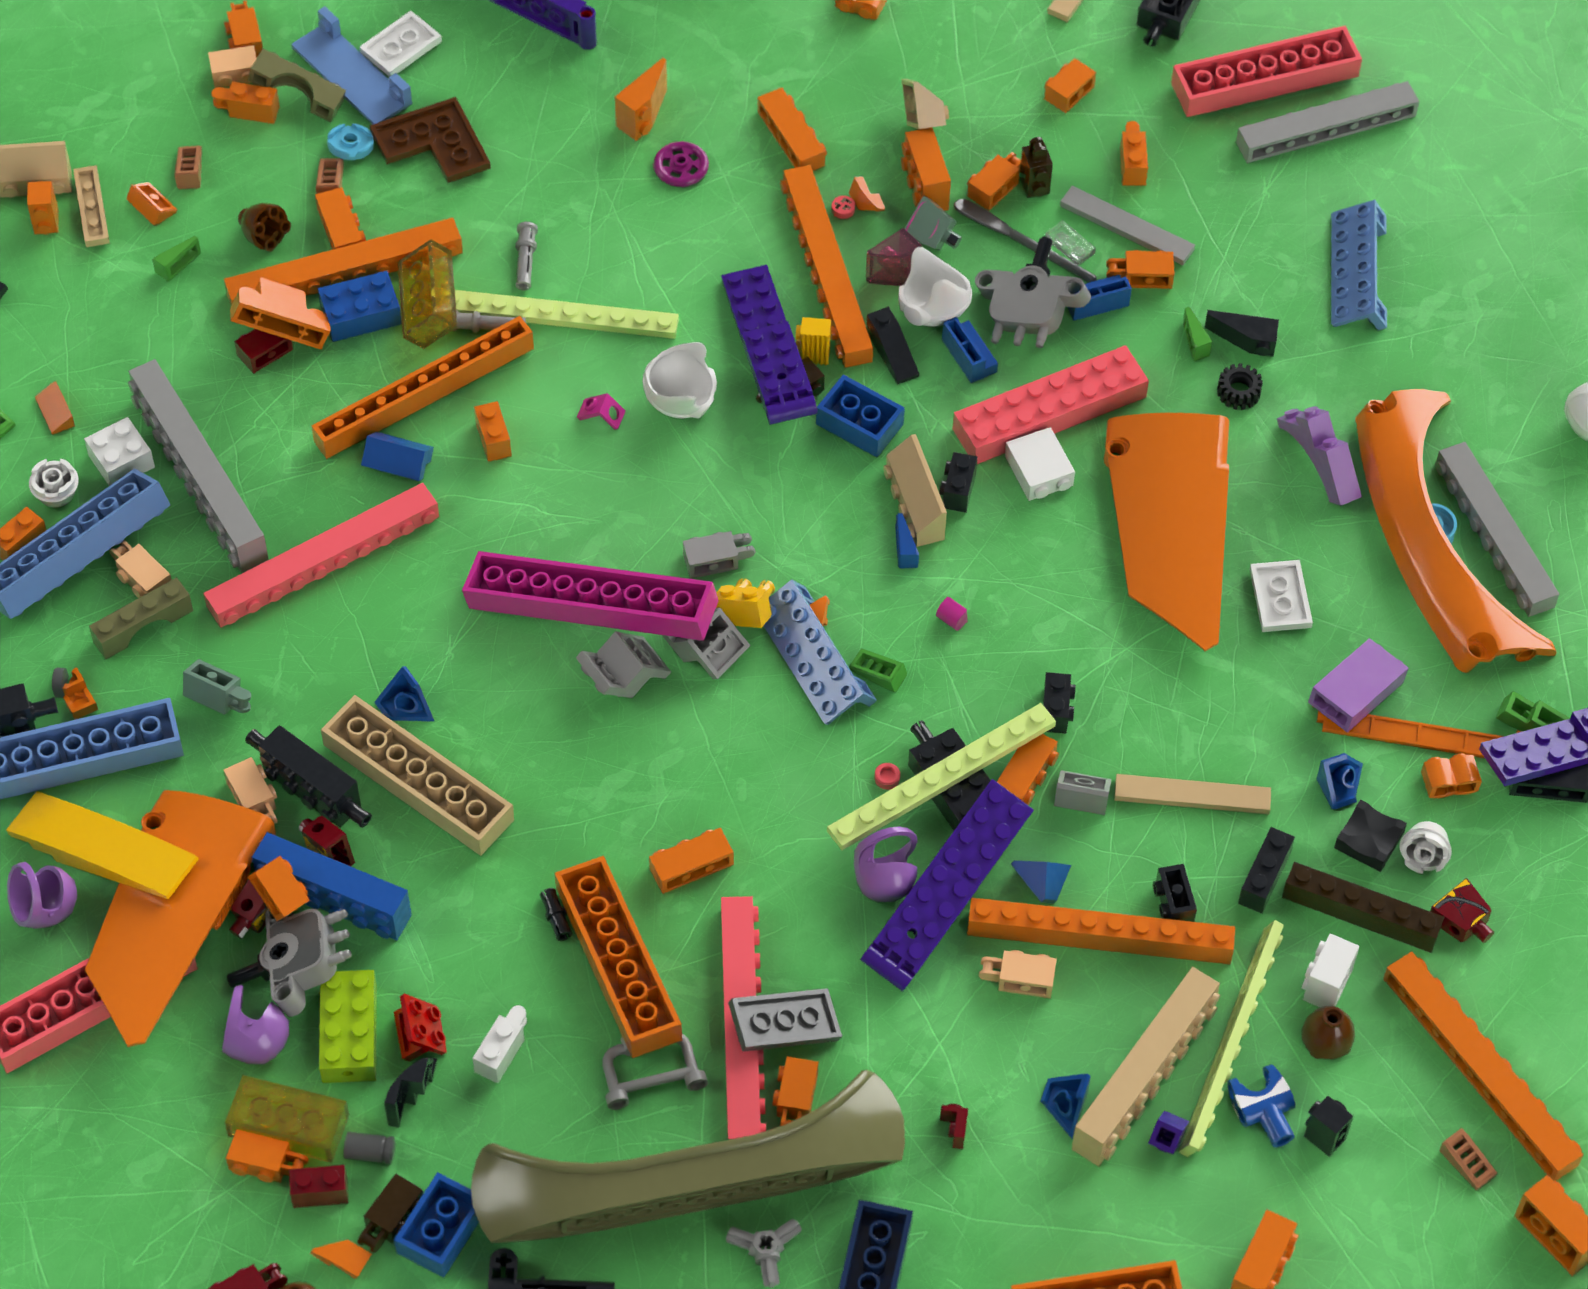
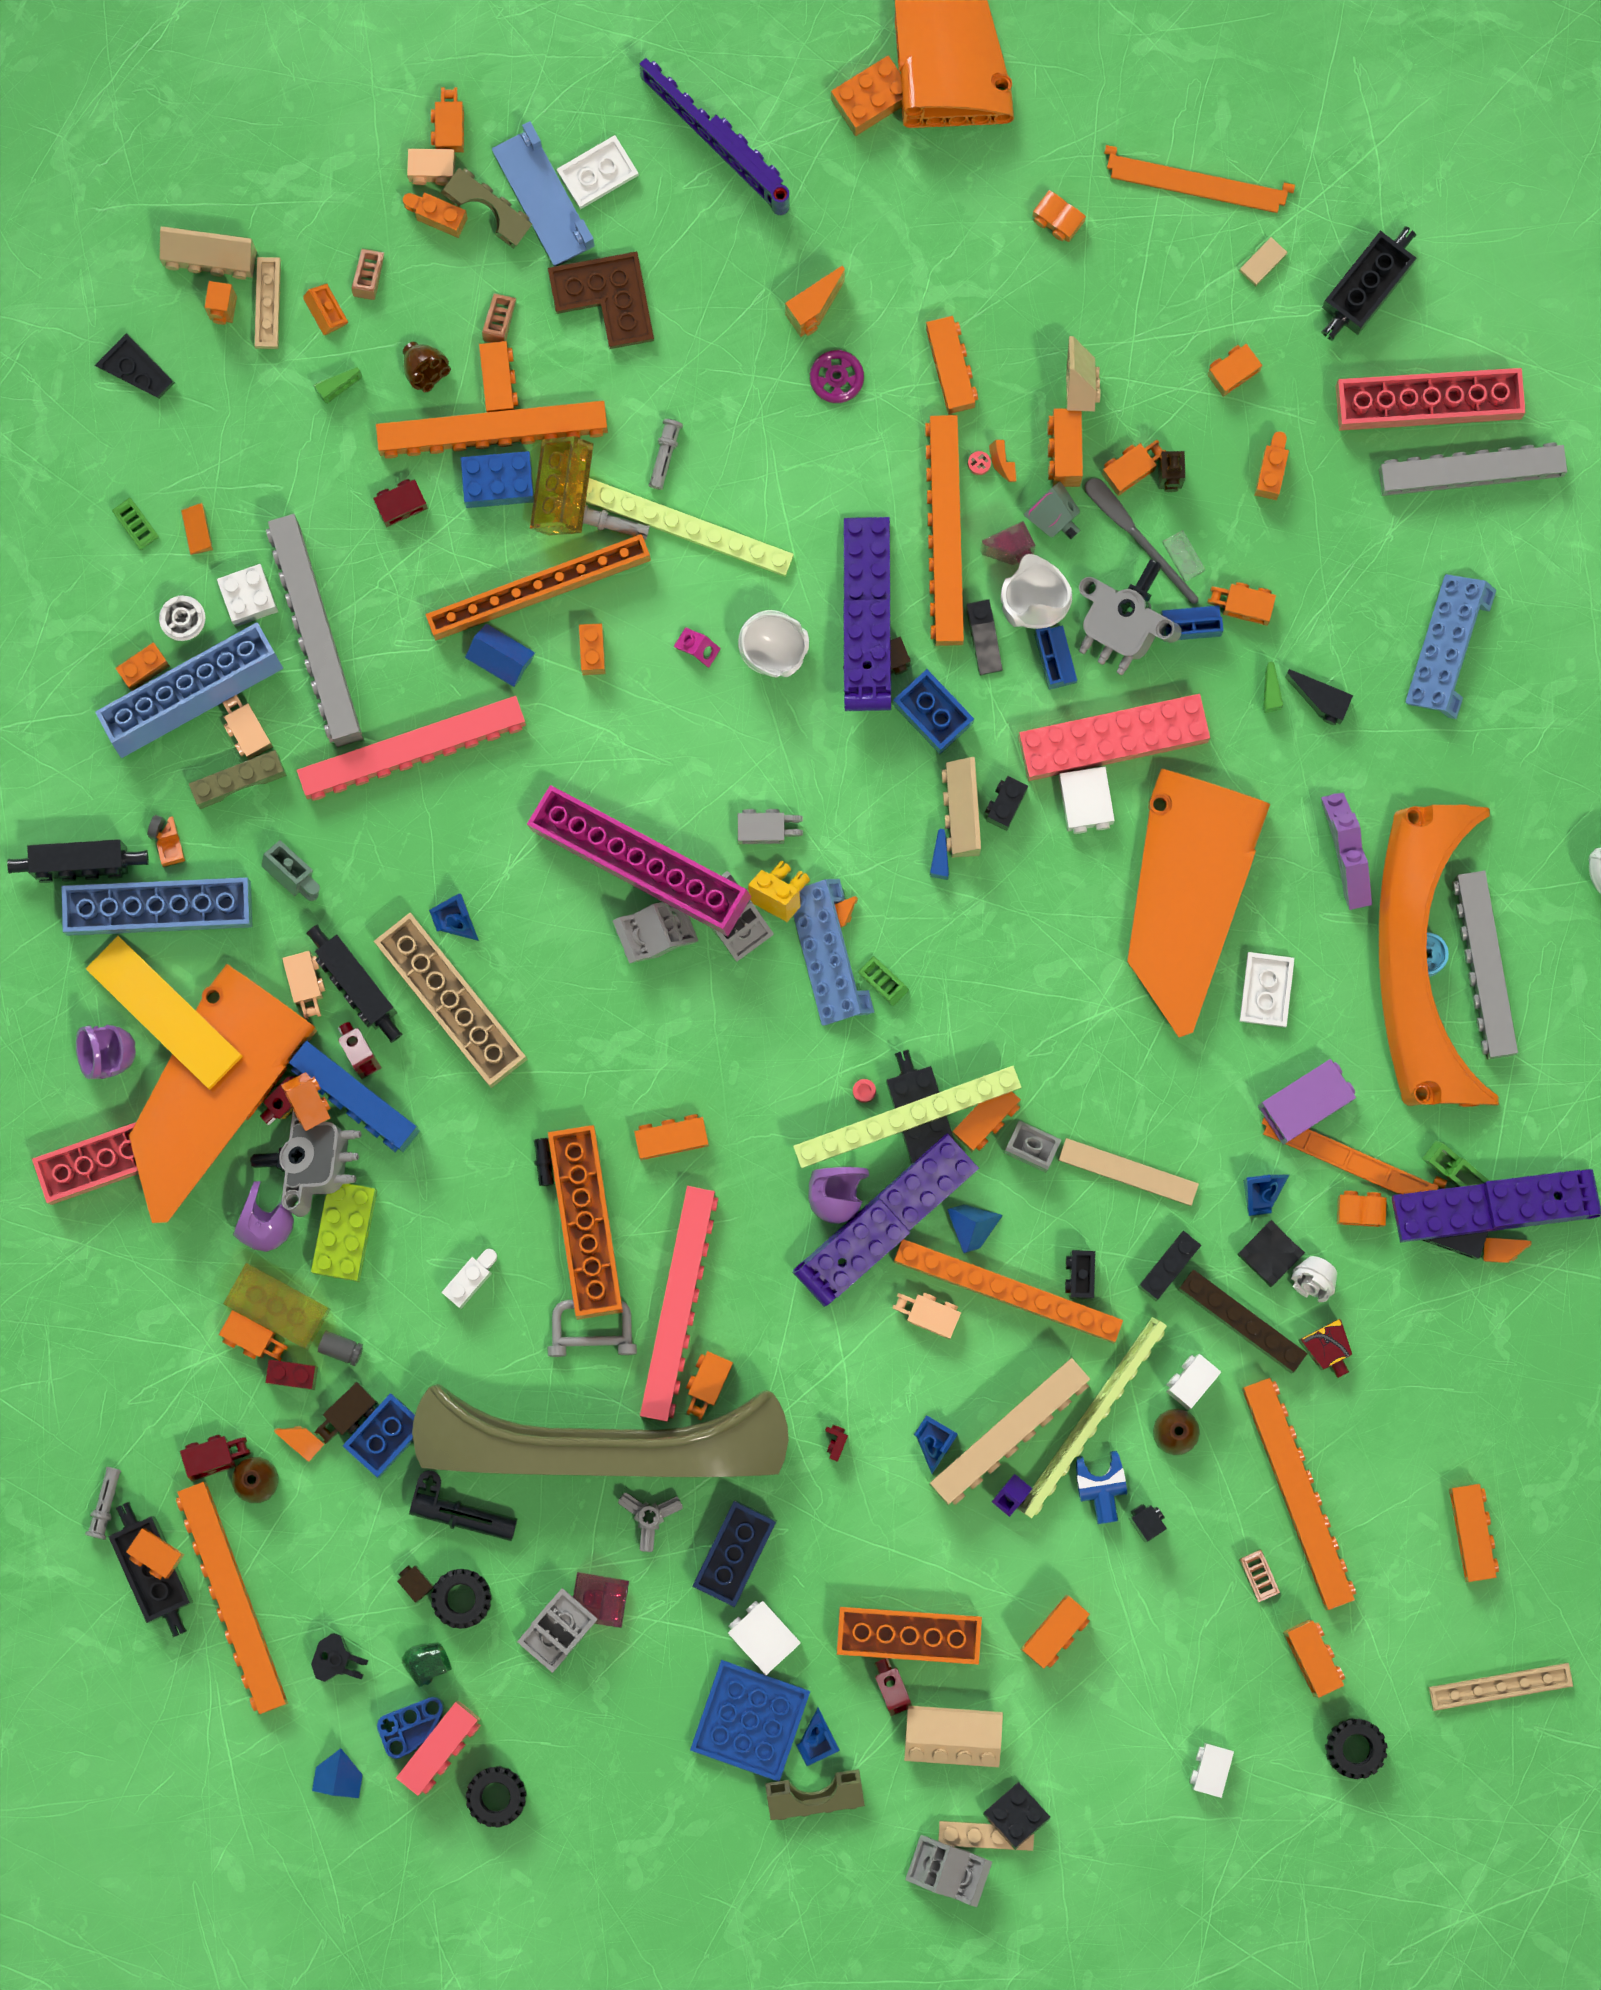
camera: 15 degrees right, 25 degrees up
(280, 312) = (420, 481): orange brick -> none
(345, 150) = (520, 291): medium azure tile -> none
(407, 1087) = (387, 1301): black slope -> none
(419, 1028) = (404, 1247): red bracket -> none
(785, 1019) = (714, 1316): plate -> none
(814, 339) = (910, 619): yellow brick -> none
(952, 613) = (963, 941): dark pink brick -> none
(1057, 698) = (1032, 1054): black brick -> none
(1126, 224) = (1244, 545): light grey tile -> none
(1237, 397) = (1292, 768): black tyre -> none

